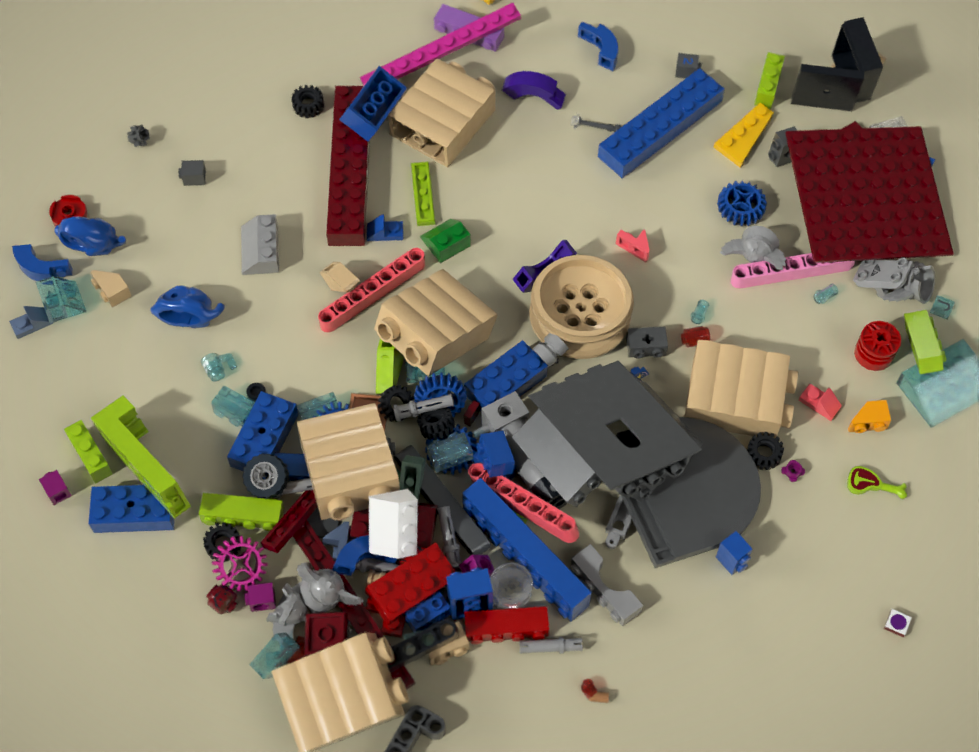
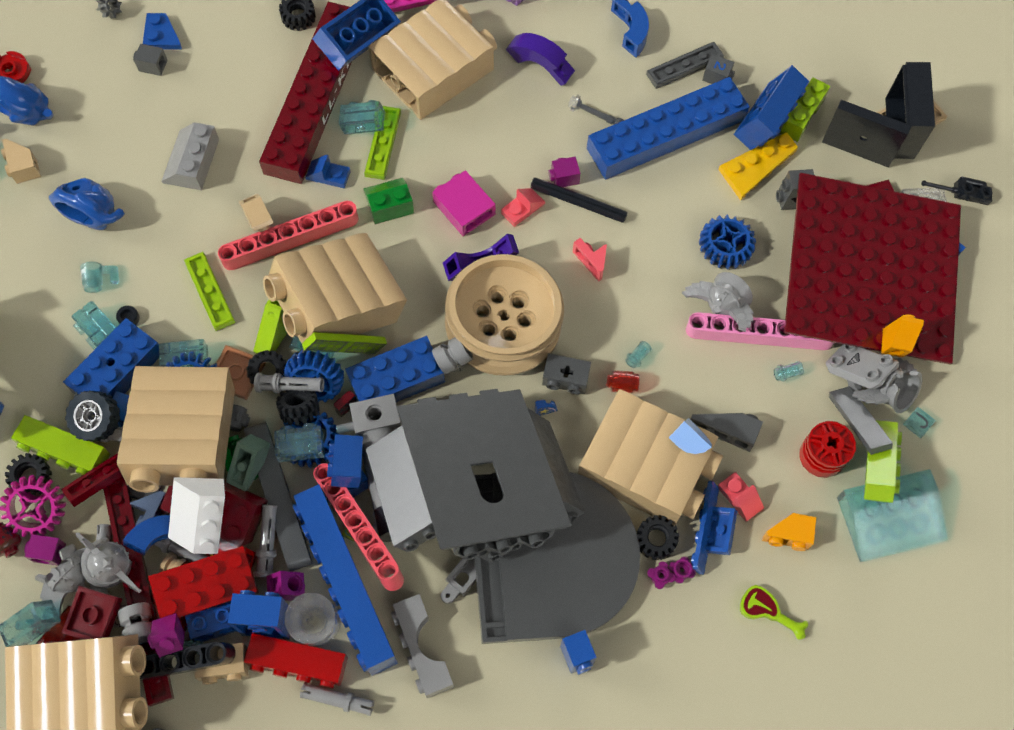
camera: 15 degrees right, 5 degrees up
(192, 147) = (160, 33): none -> blue wing
(319, 353) = (209, 291): none -> lime tile
(364, 623) = (134, 614): none -> light grey wheel
(399, 176) = (362, 117): none -> clear light blue brick
(399, 627) = (166, 635): none -> magenta brick
(458, 362) = (344, 343): none -> lime tile
(511, 226) = (464, 202): none -> dark pink brick
(561, 217) = (524, 204): none -> coral slope
(588, 180) = (565, 172): none -> magenta brick
(608, 200) = (579, 200): none -> black axle
(655, 68) = (682, 65): none -> dark grey tile
(743, 85) = (772, 108): none -> blue brick
(769, 362) = (690, 438): none -> light blue brick
(778, 485) = (659, 581): none -> magenta plate
(801, 349) = (732, 428): none -> dark grey slope
(810, 432) = (715, 529): none -> blue bracket
(896, 315) = (860, 420): none -> tile
(908, 240) = (901, 336): none -> light orange slope
(922, 114) = (967, 189): none -> black piece

